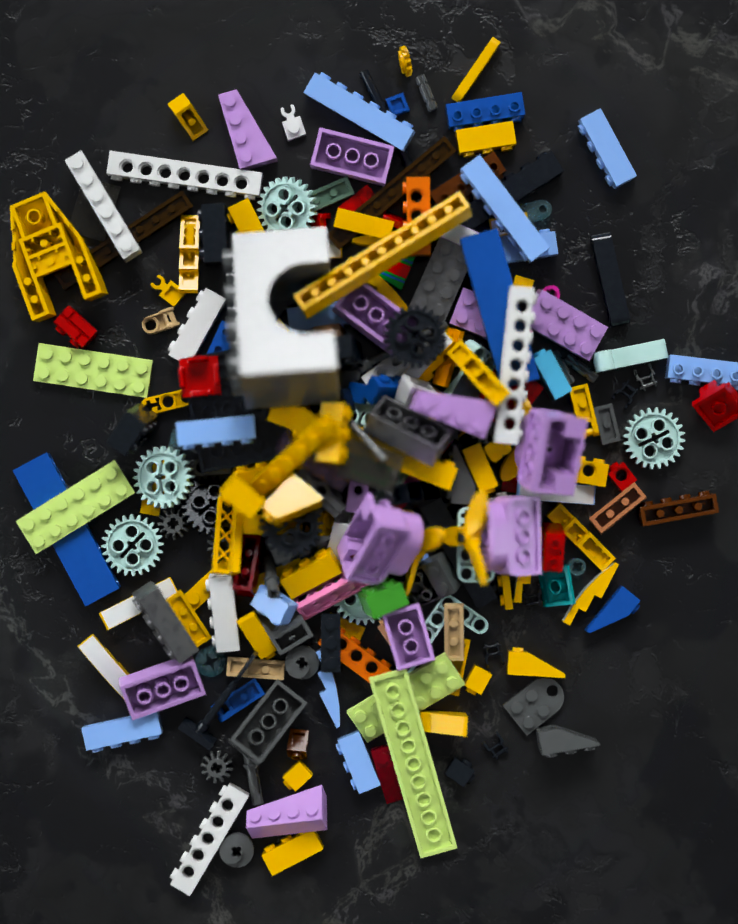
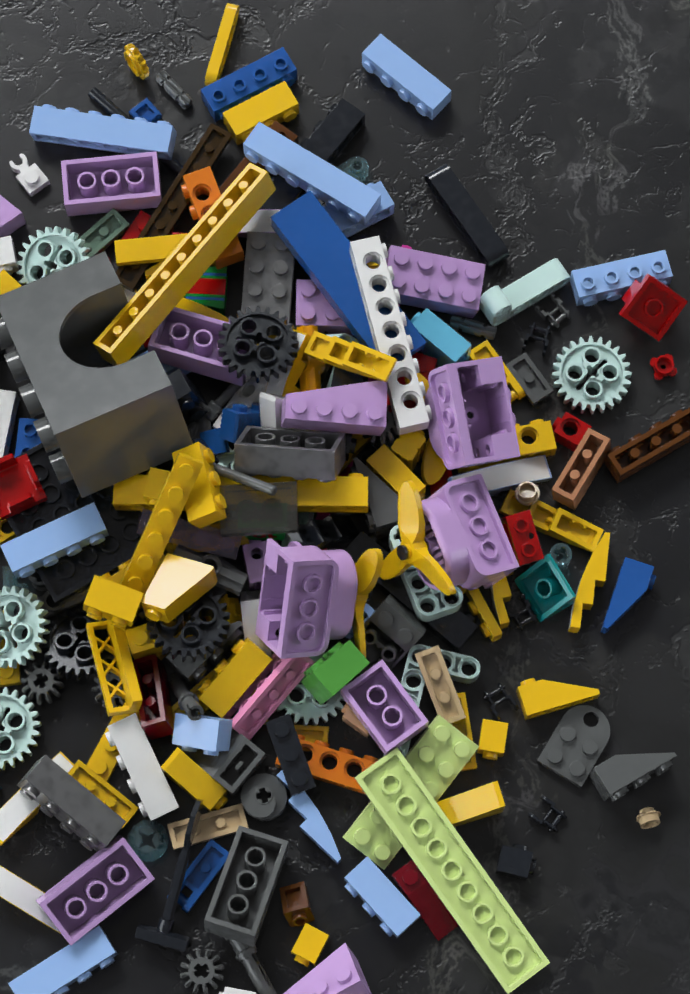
camera: 20 degrees left, 15 degrees down
(565, 774) = (648, 818): none -> tan plate
(571, 512) = (527, 493): none -> tan plate
(714, 450) = (666, 360): none -> red plate

